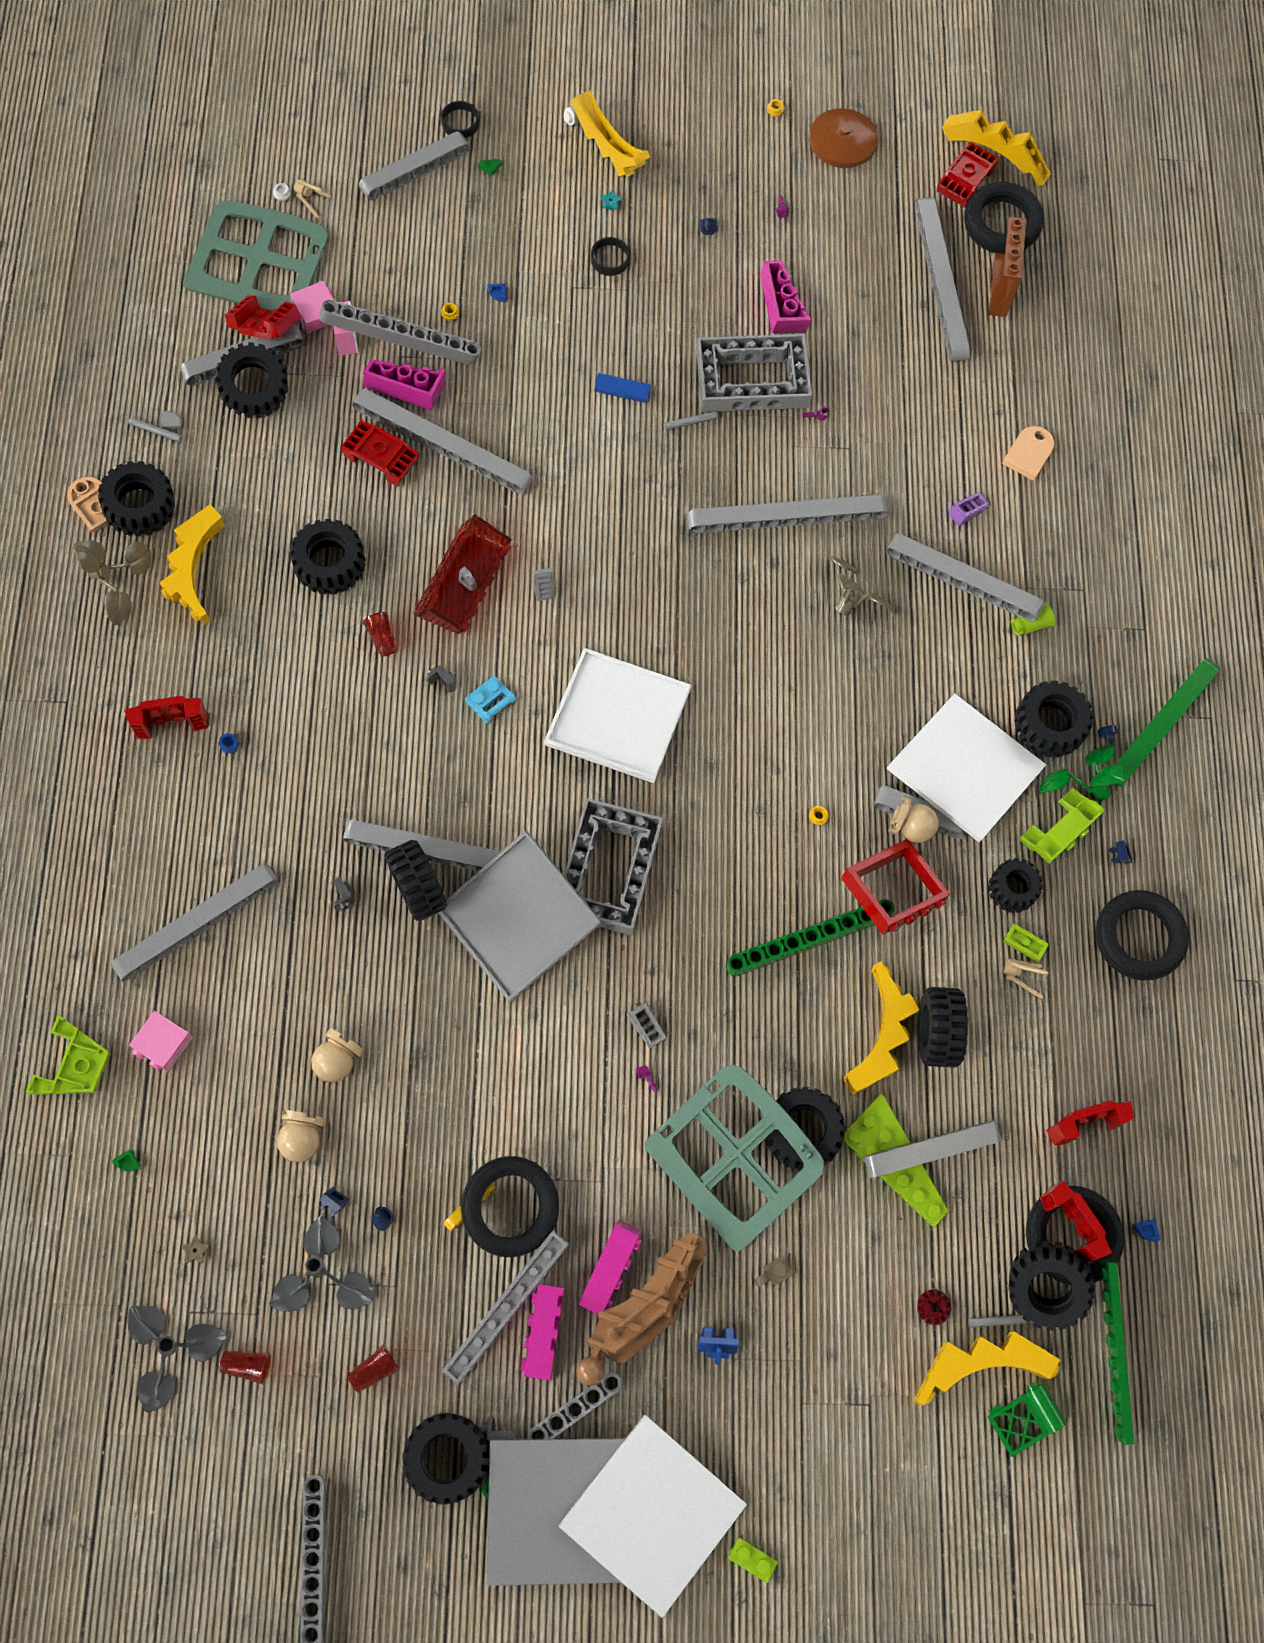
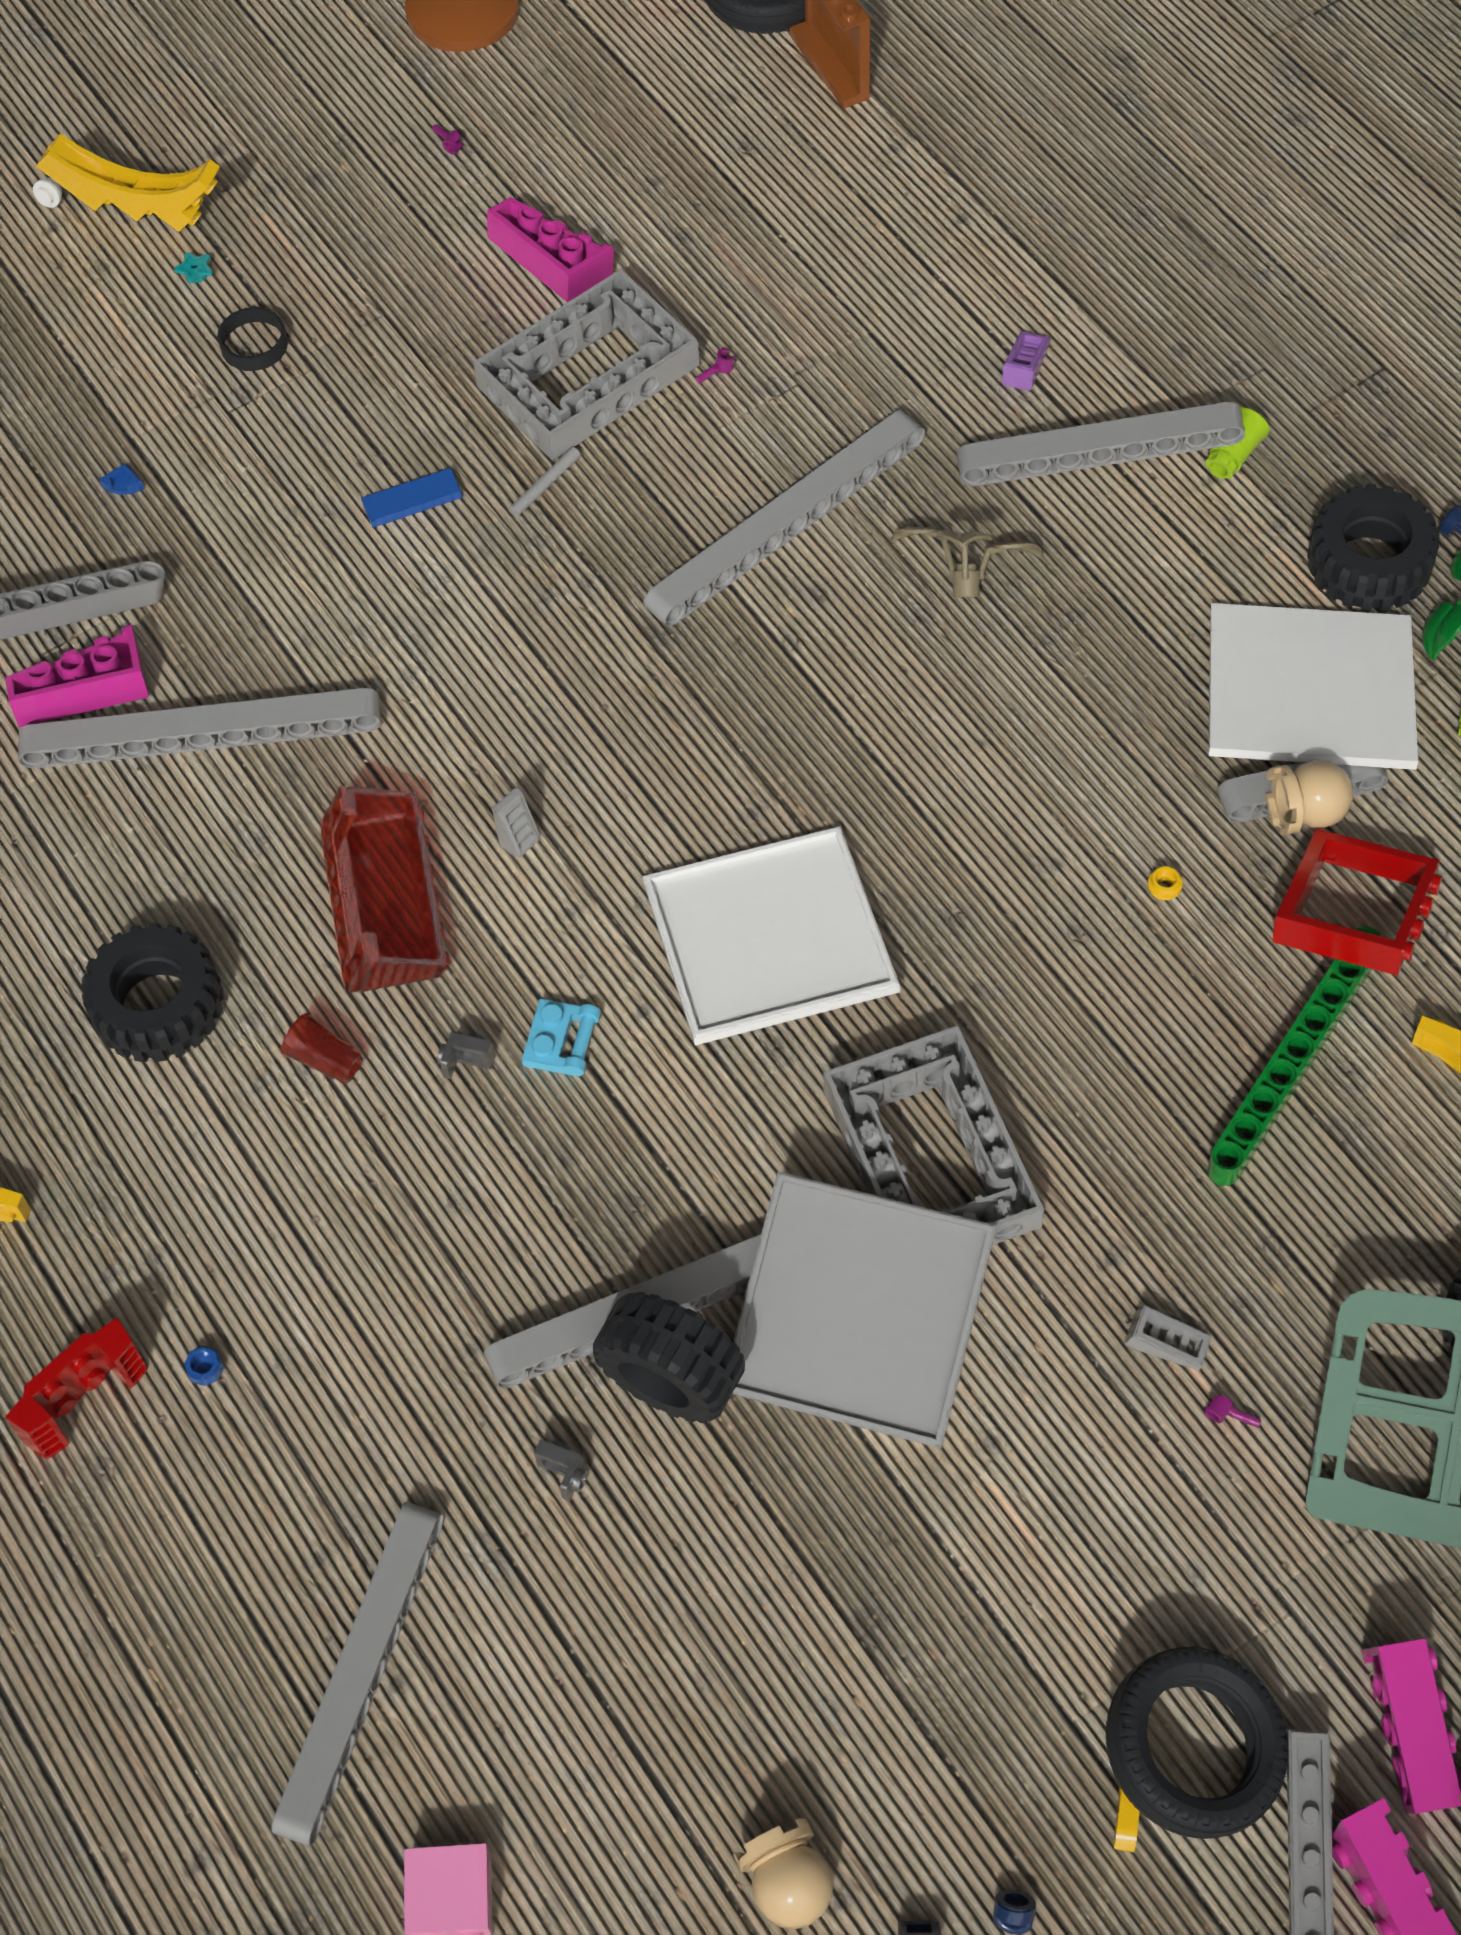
camera: 25 degrees left, 10 degrees down
(334, 1059) = (748, 1718): tan tile -> none
(380, 451) = (116, 795): red plate -> none
(449, 307) = (70, 548): yellow plate -> none
(467, 579) = (393, 890): light grey tile -> none
(708, 222) = (362, 213): dark blue tile -> none
(775, 108) = (336, 21): yellow plate -> none
(942, 279) = (747, 100): light grey beam -> none
(1029, 453) = (1046, 245): light nougat tile -> none

